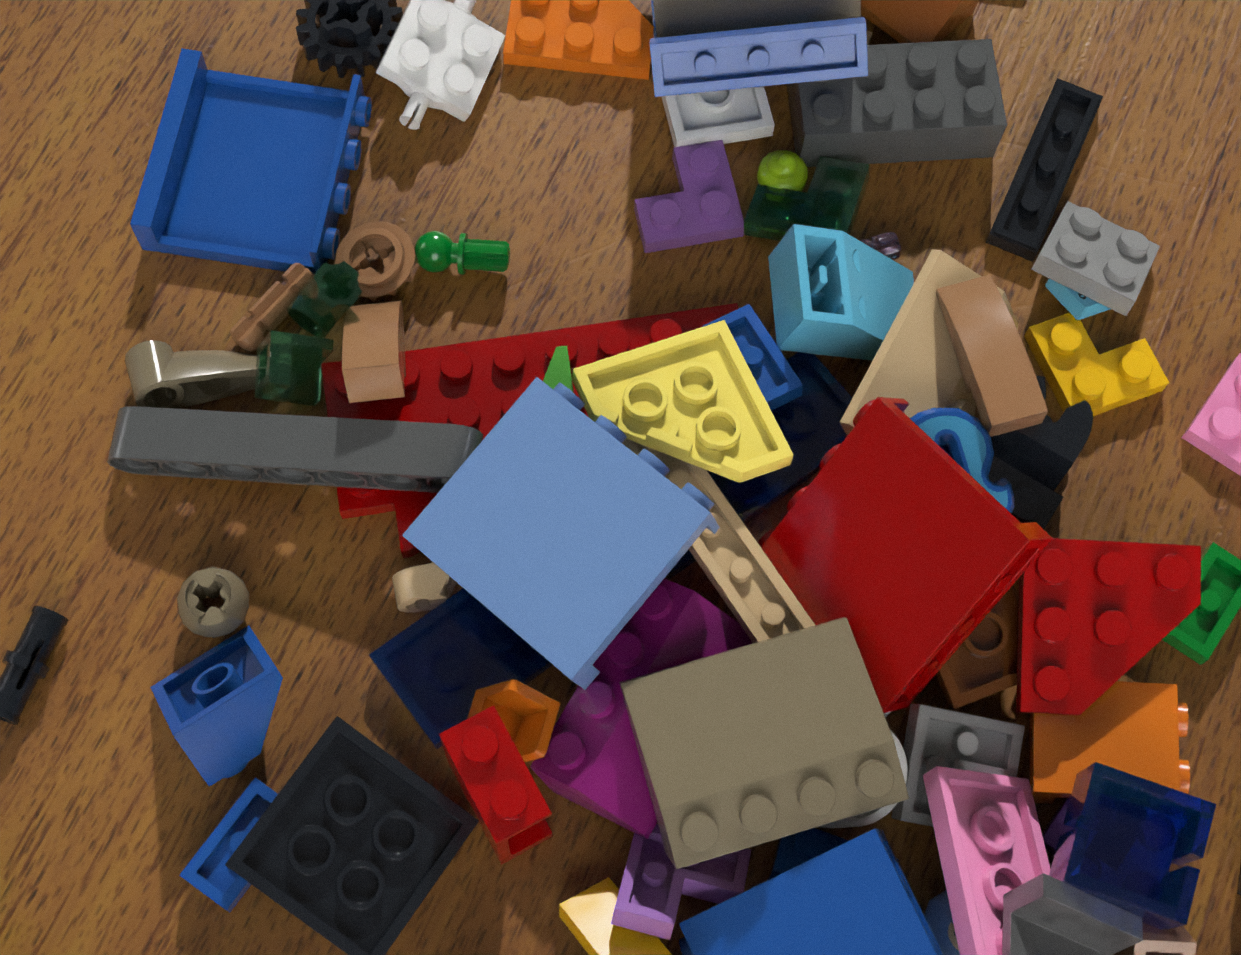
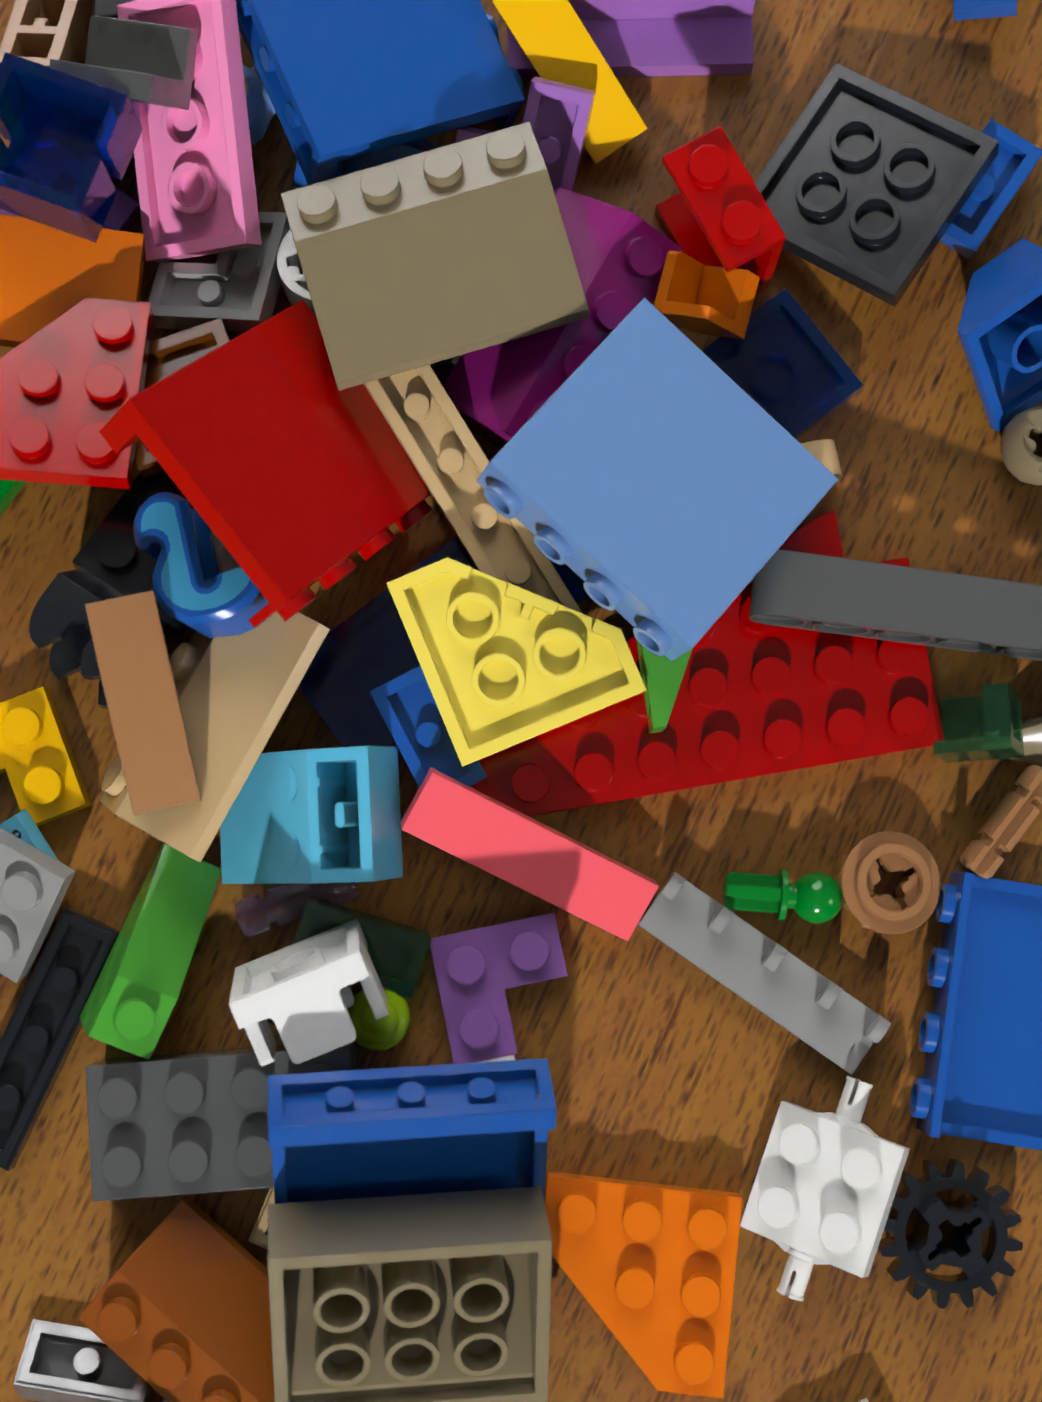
camera: 165 degrees left, 15 degrees up
(325, 298) = (946, 814): clear green piece -> none
(374, 351) = (884, 741): medium nougat slope -> none
(480, 203) = (763, 973): none -> light grey hinge
(668, 274) = (528, 854): none -> coral tile
(845, 163) = (306, 994): none -> white panel
(968, 197) = (151, 954): none -> bright green slope

